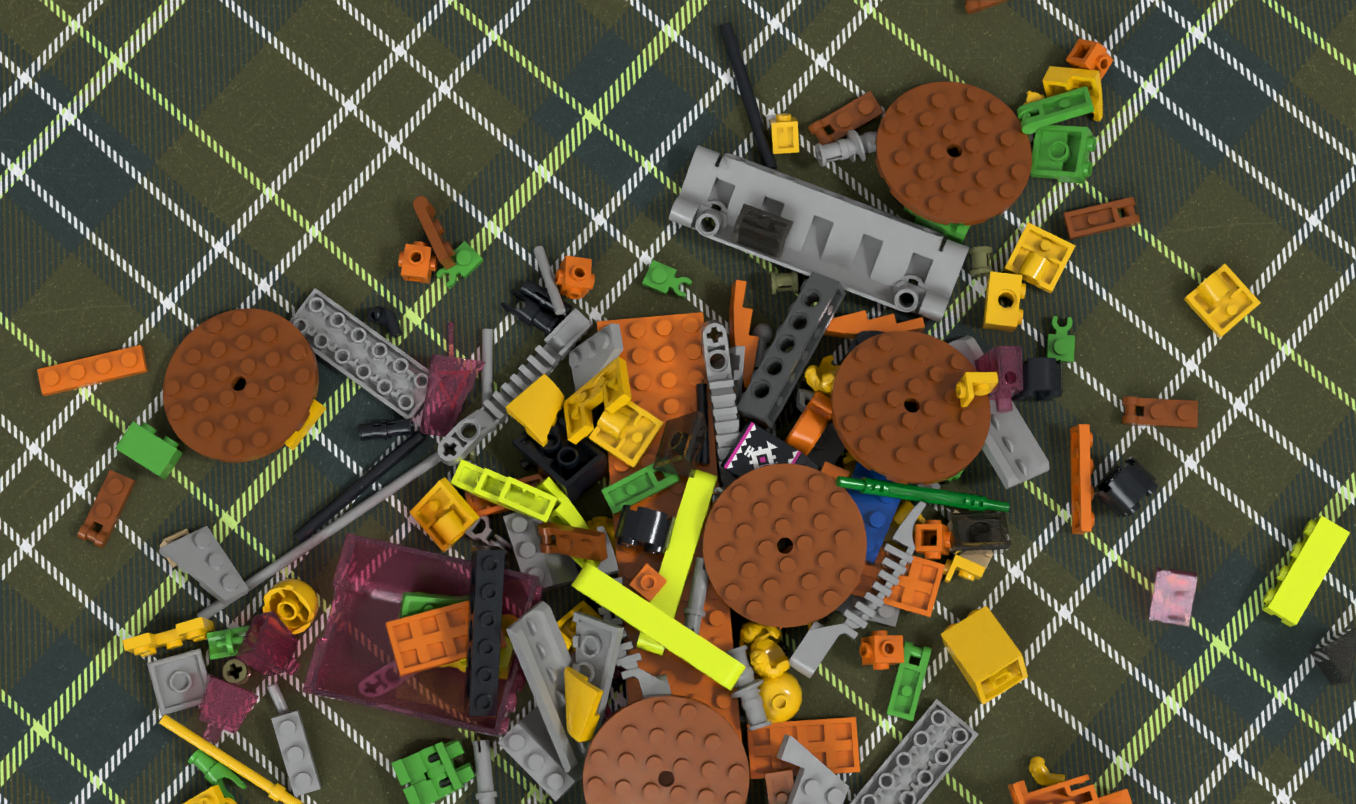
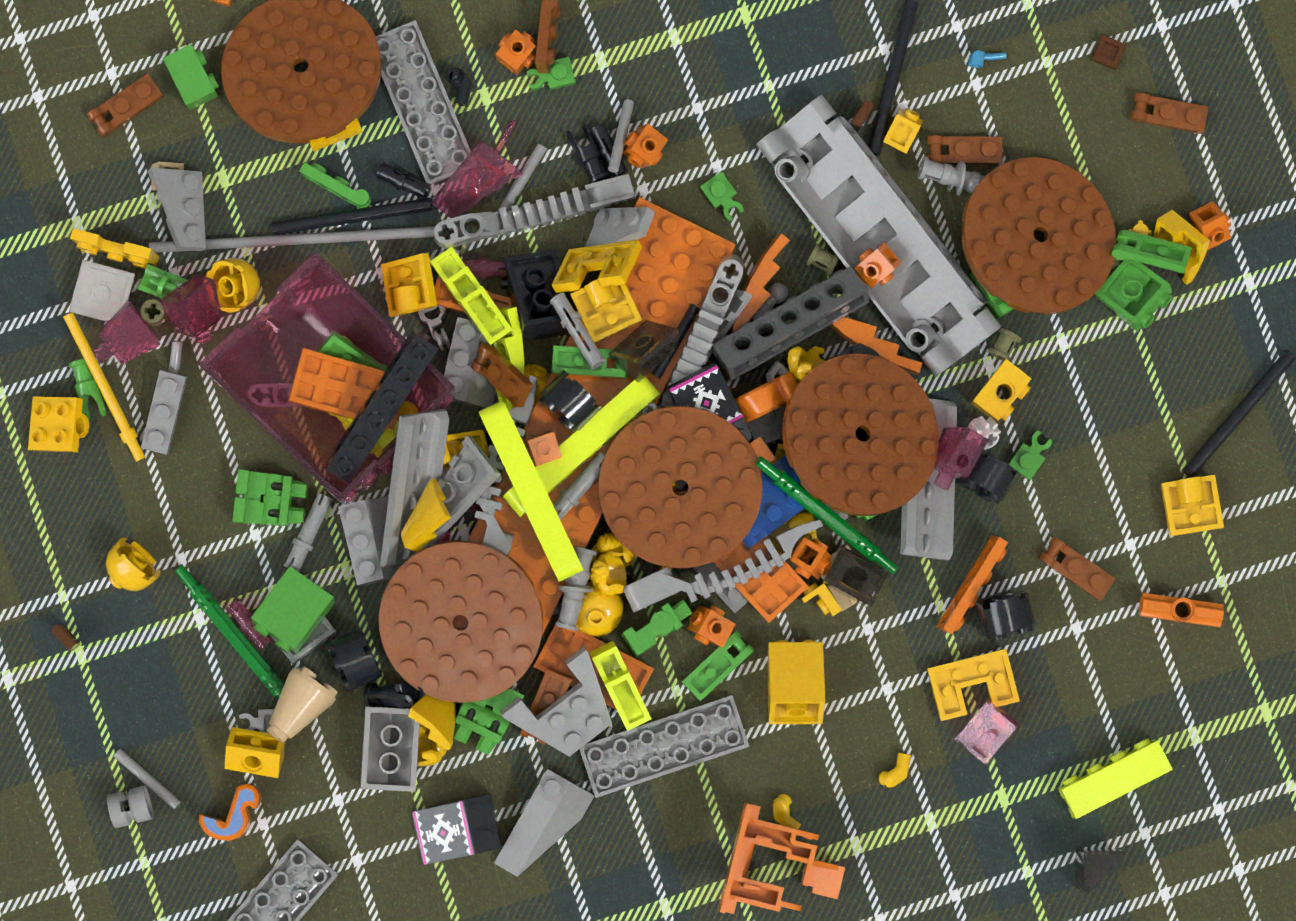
camera: 20 degrees right, 5 degrees up
(331, 468) = (336, 185): none -> bright green plate
(501, 461) = (485, 268): none -> clear pink pin
(537, 408) = (543, 241): yellow slope -> none
(587, 451) = (561, 305): none -> light grey pin
(742, 142) = (861, 116): none -> reddish brown tile
(762, 231) = (830, 204): clear smoke brick -> none
(809, 38) = (977, 58): none -> dark azure hand
(834, 258) = (877, 265): none -> orange brick
(836, 749) = (620, 685): none -> neon yellow slope
(839, 673) = (660, 625): none -> bright green hips
(975, 384) = (930, 448): yellow bracket -> none
(1010, 338) = (987, 429): none -> white gear
(1039, 257) = (1057, 372): yellow plate -> none
(1100, 218) = (1132, 370): dark orange plate -> none
(1120, 679) = (898, 773): none -> yellow arm
(1140, 541) = (990, 668): none -> yellow plate
(1211, 202) = (1239, 414): none -> black piece
(1283, 387) = (1197, 611): none -> orange piece

